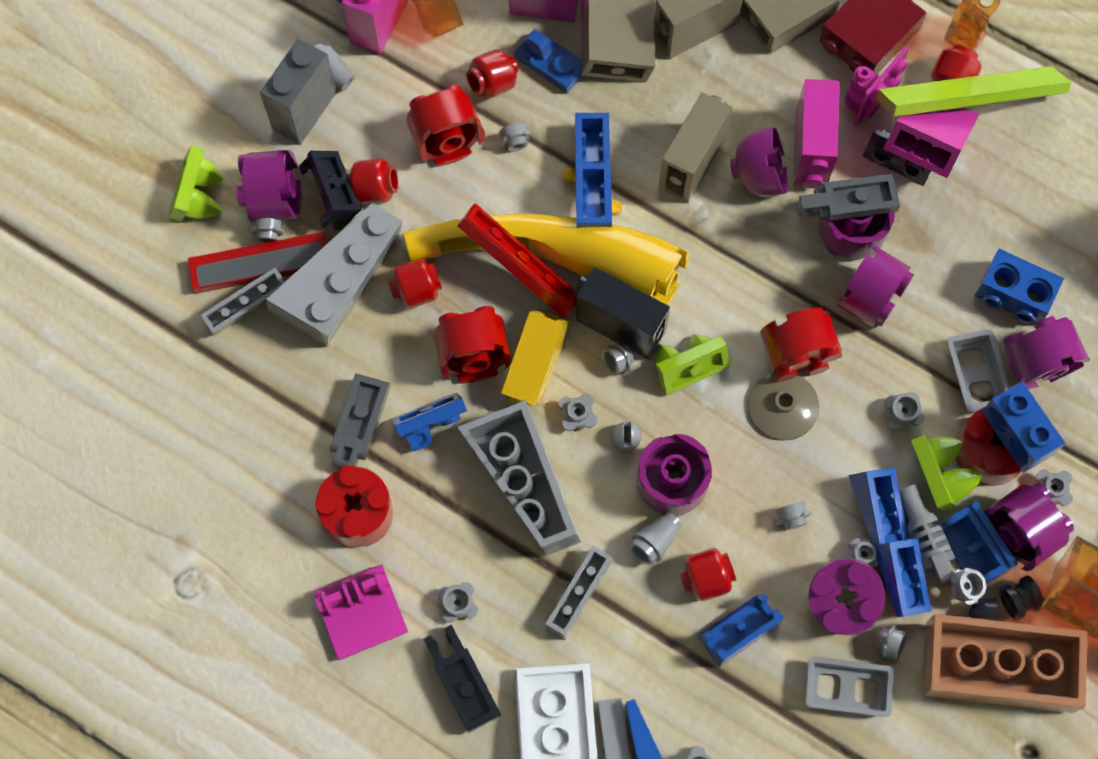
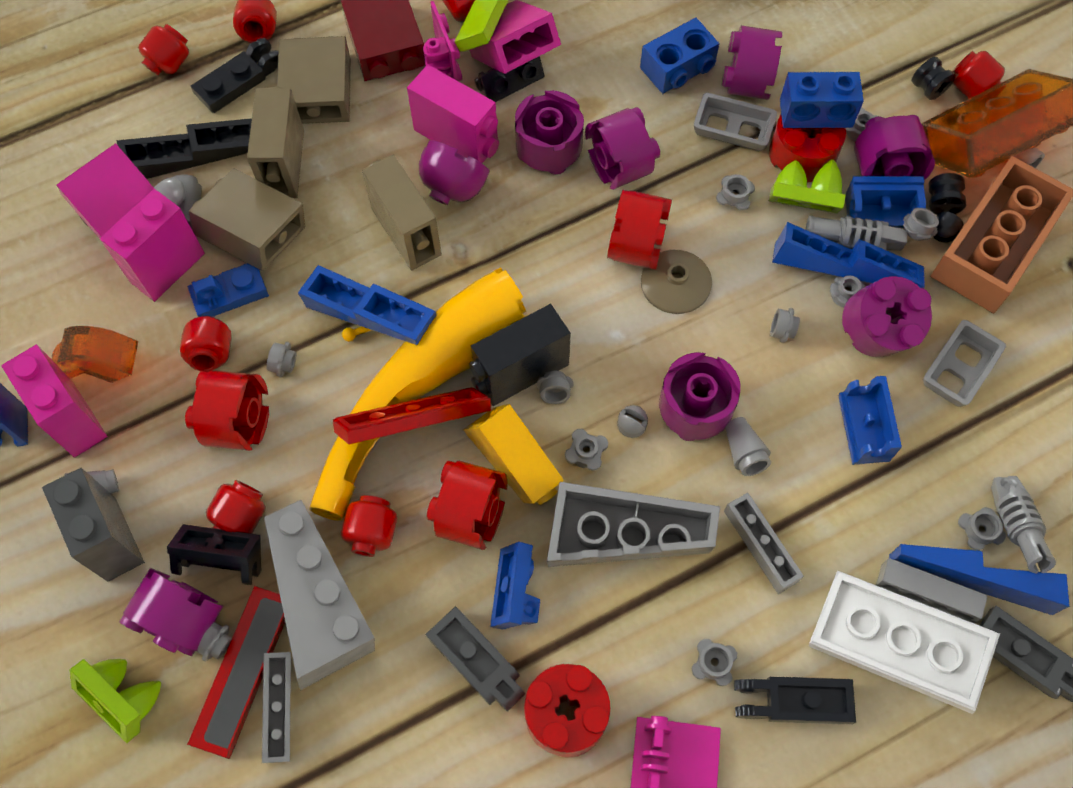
camera: 60 degrees left, 5 degrees down
(700, 361) = (600, 318): lime tile -> none
(708, 574) = (806, 419): red head -> none
(851, 198) = (538, 115): dark grey hinge -> none
(891, 643) = (942, 310): light grey plate -> none

